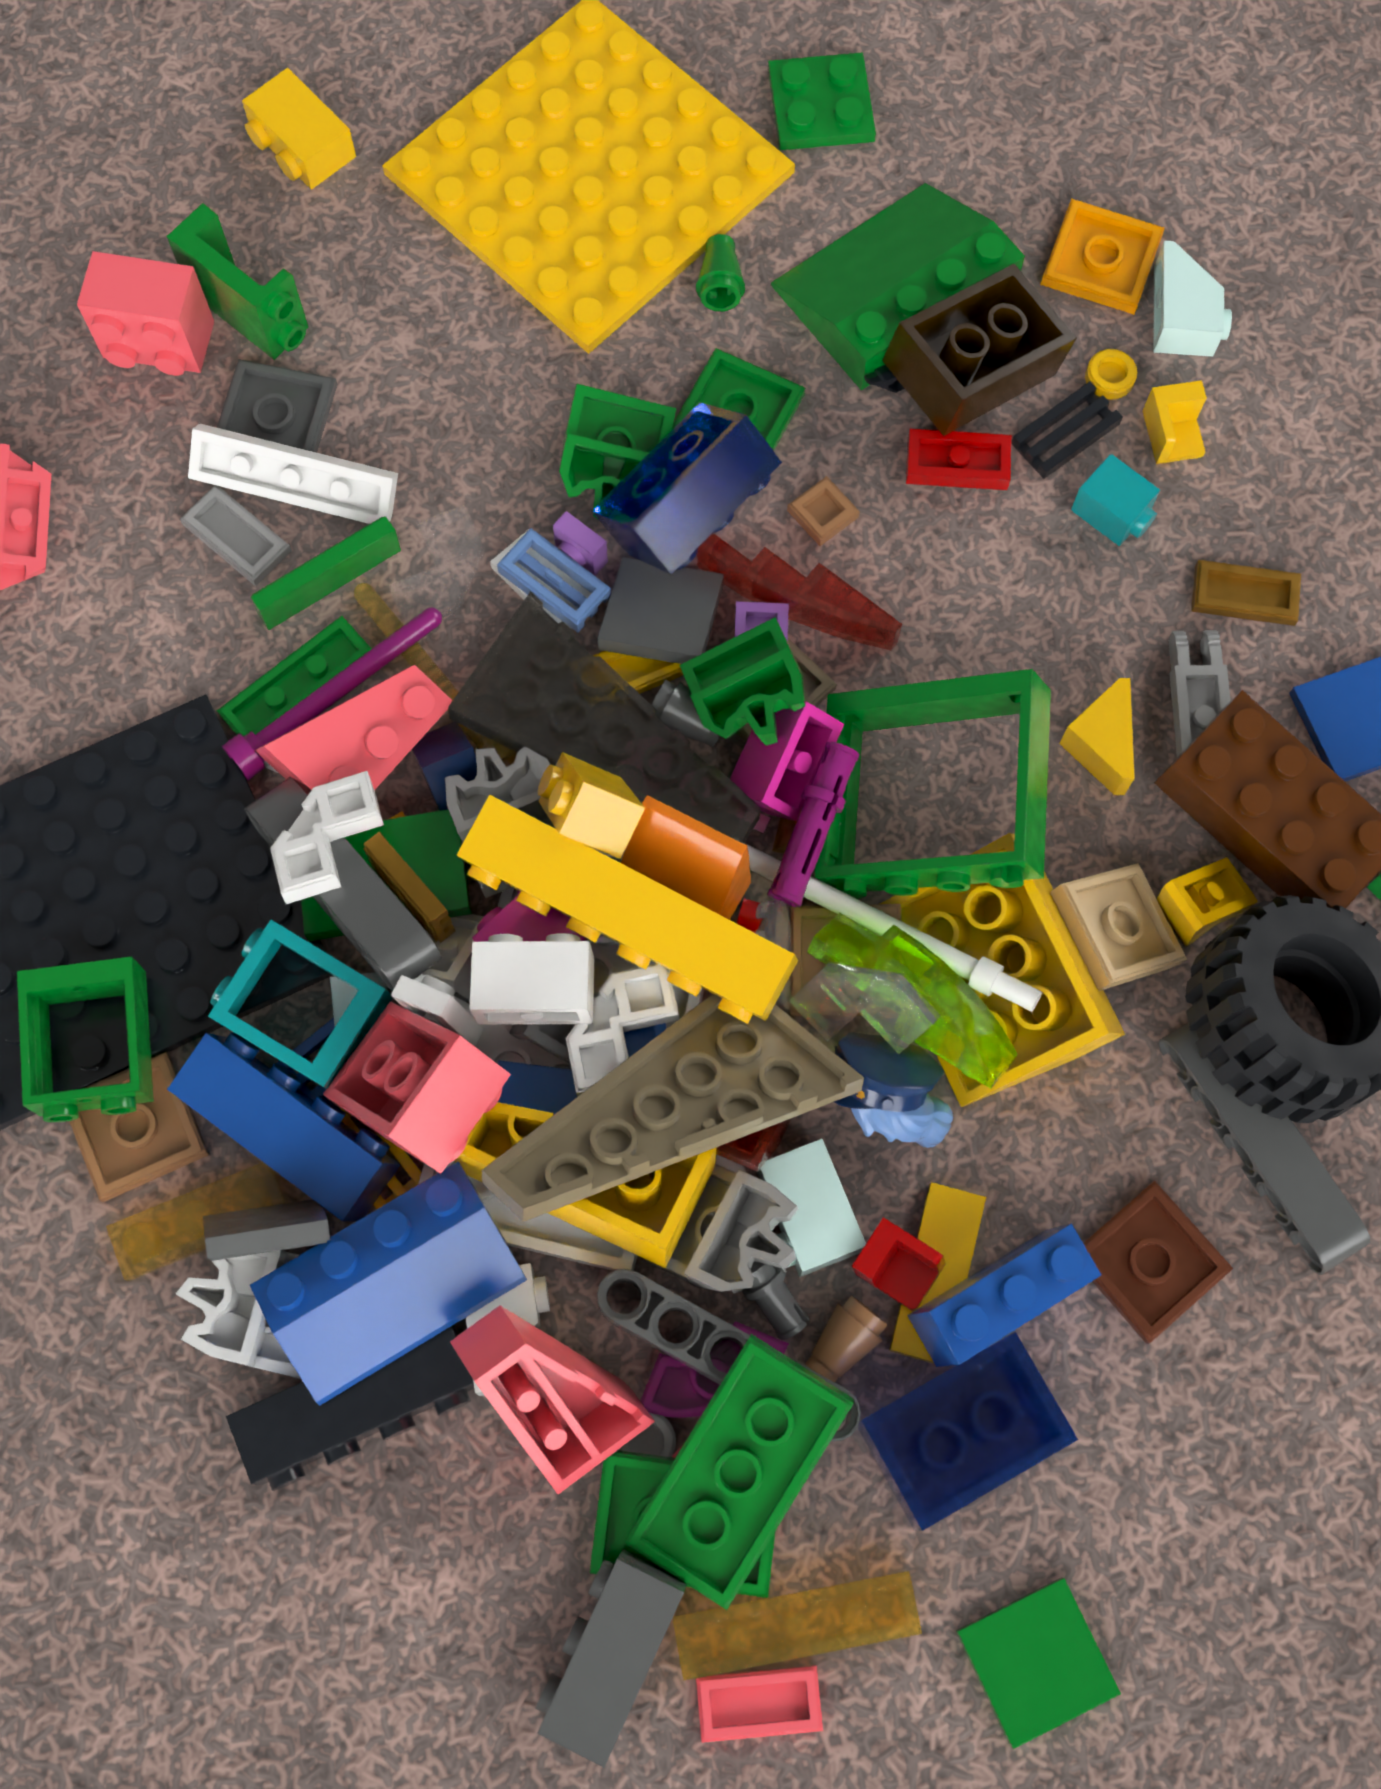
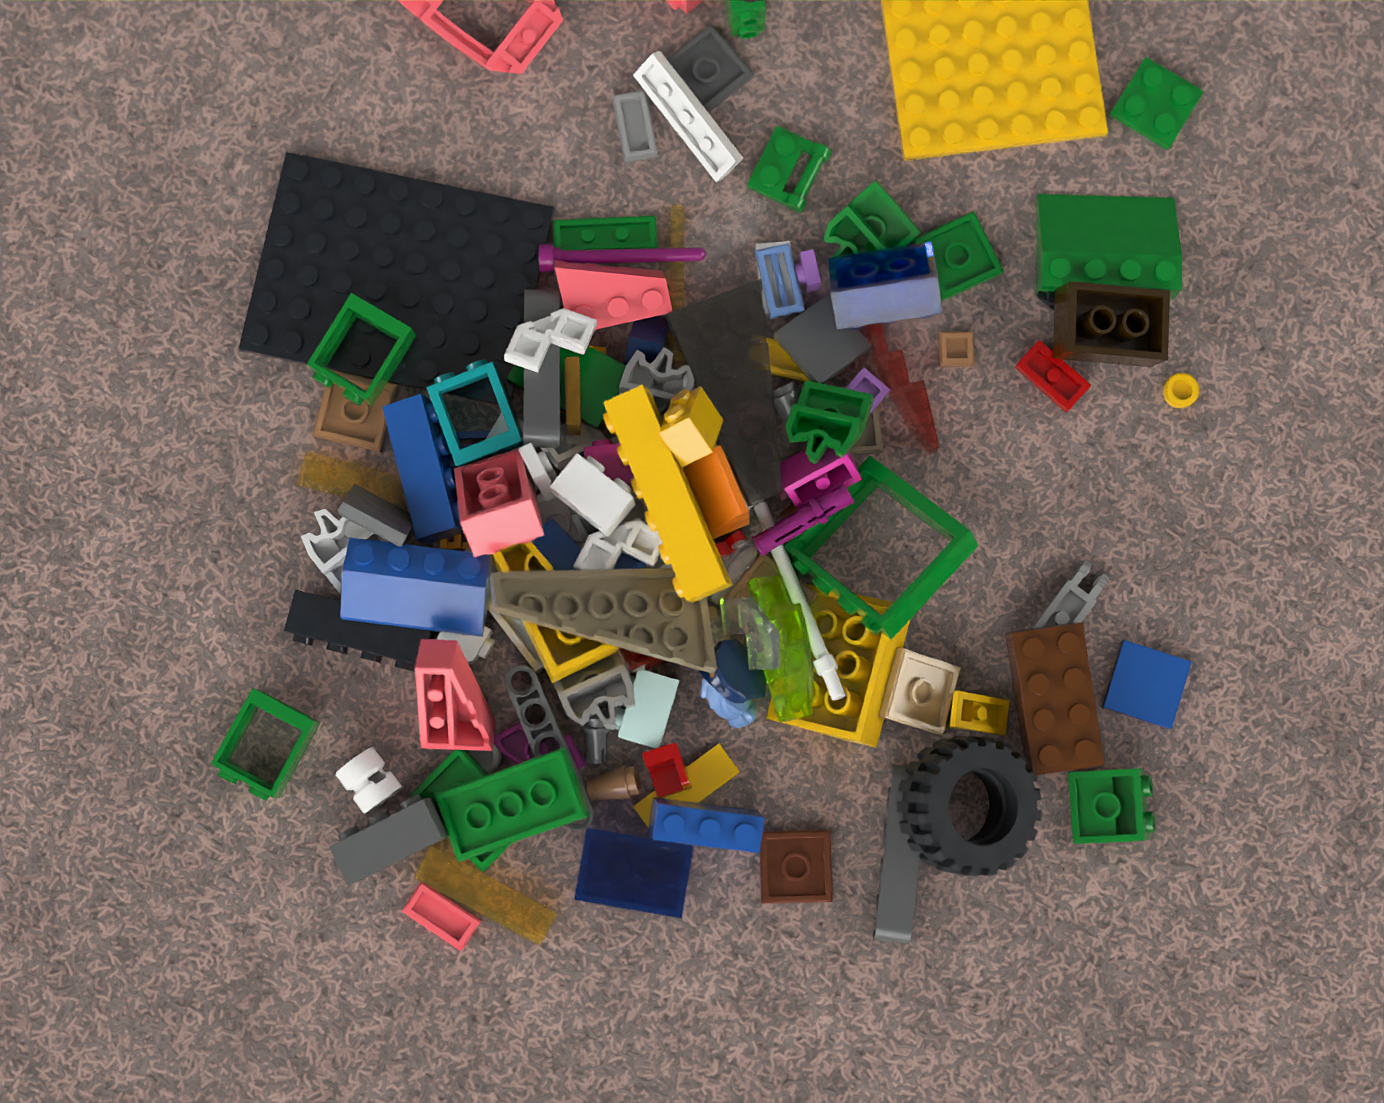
camera: 40 degrees right, 10 degrees up
(326, 572) = (664, 186): green tile -> none
(375, 1729) = (233, 772): none -> green window
(445, 458) = (778, 164): none -> green plate
(520, 1597) = (368, 780): none -> white wheel
(720, 277) = (1010, 170): green cone -> none
(1038, 1662) = (584, 1002): green tile -> none
(1096, 407) = (1158, 403): black tile -> none
(1102, 256) = (1236, 317): light orange tile -> none
(1104, 738) = (997, 588): yellow slope -> none
(1116, 501) = (1117, 466): teal brick -> none
(1173, 423) = (1190, 446): yellow panel -> none
(1187, 305) = (1255, 385): light aqua slope -> none
(1246, 592) = (1146, 569): pearl gold tile -> none

